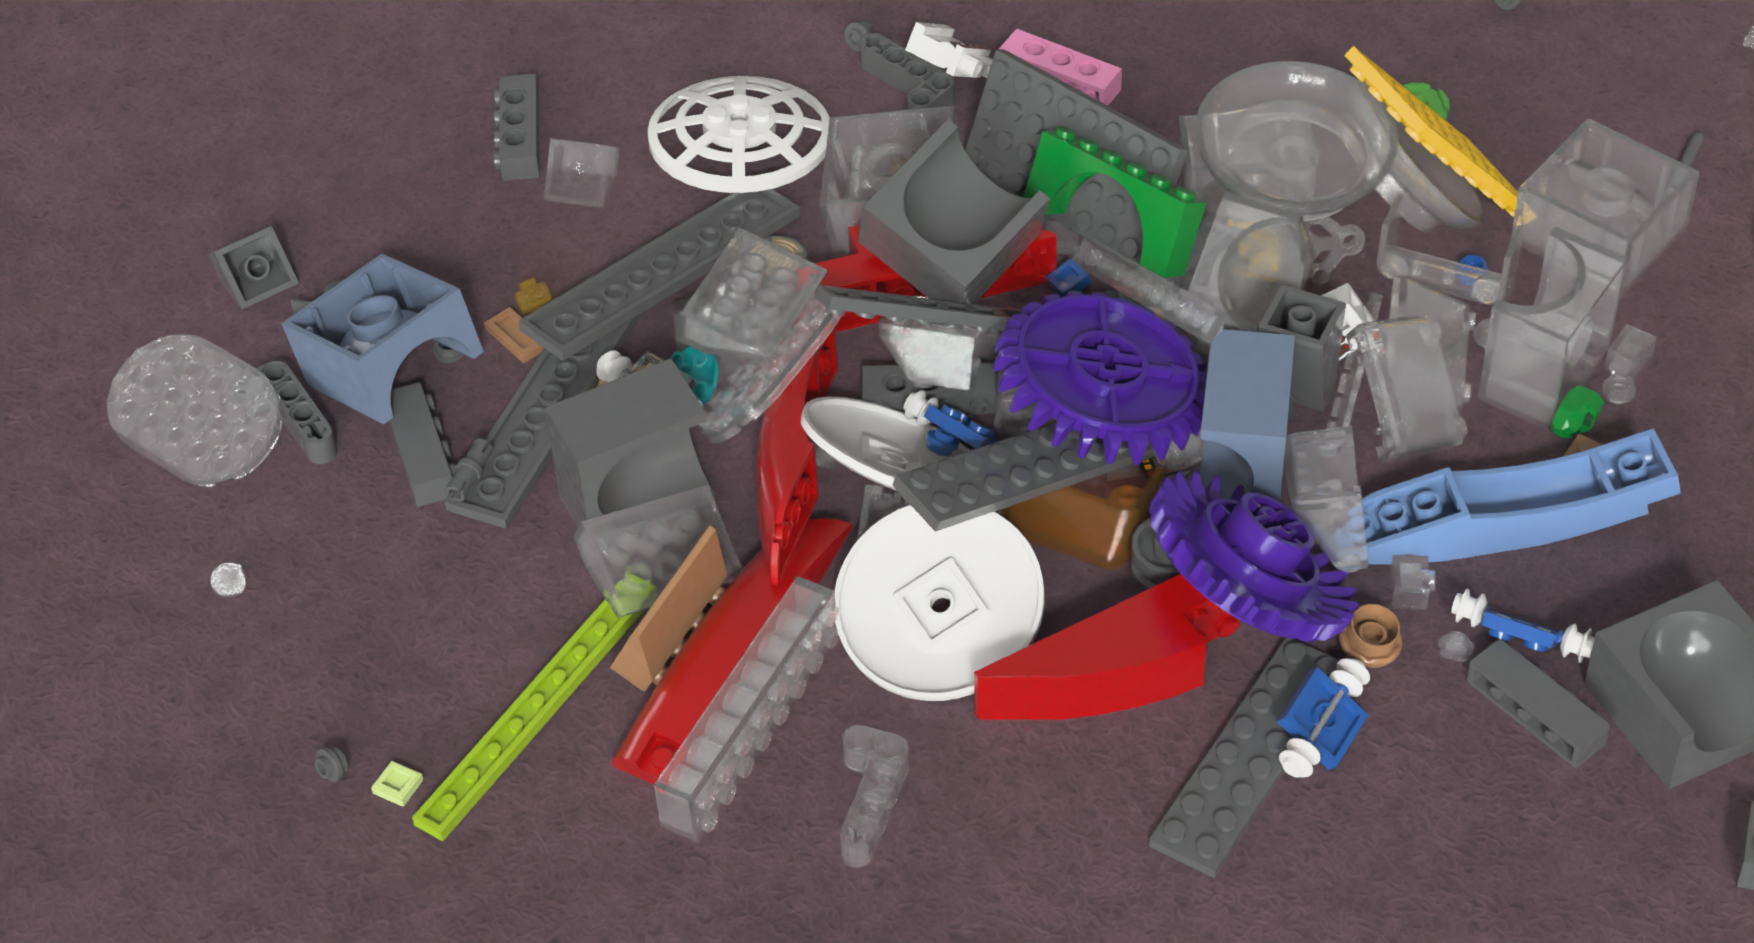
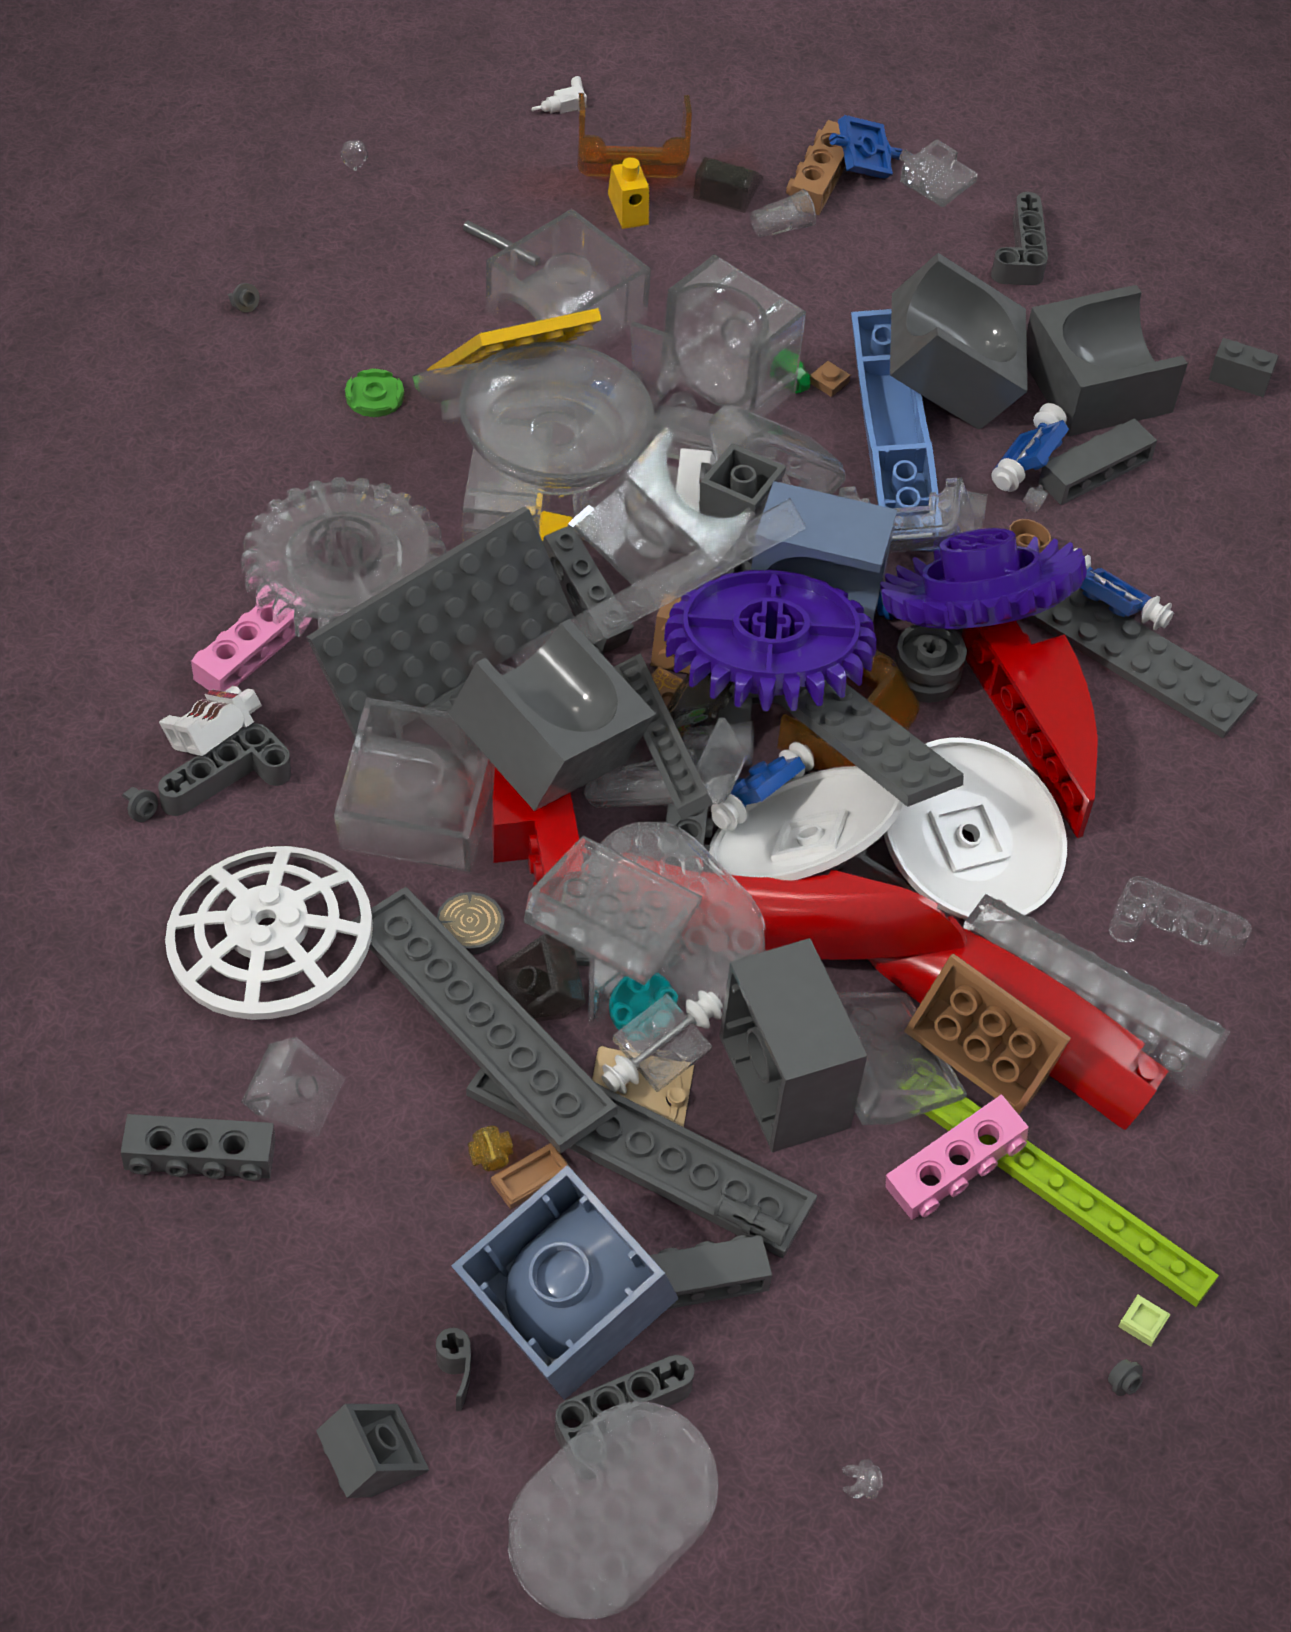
camera: 90 degrees left, 5 degrees up
(547, 613) = (993, 1119): none -> bright pink brick
(941, 442) = (786, 797): blue plate -> none
(1155, 73) = (335, 548): none -> clear gear
(1167, 212) = (472, 618): green arch -> none
(1637, 522) = (958, 342): none -> dark grey piece

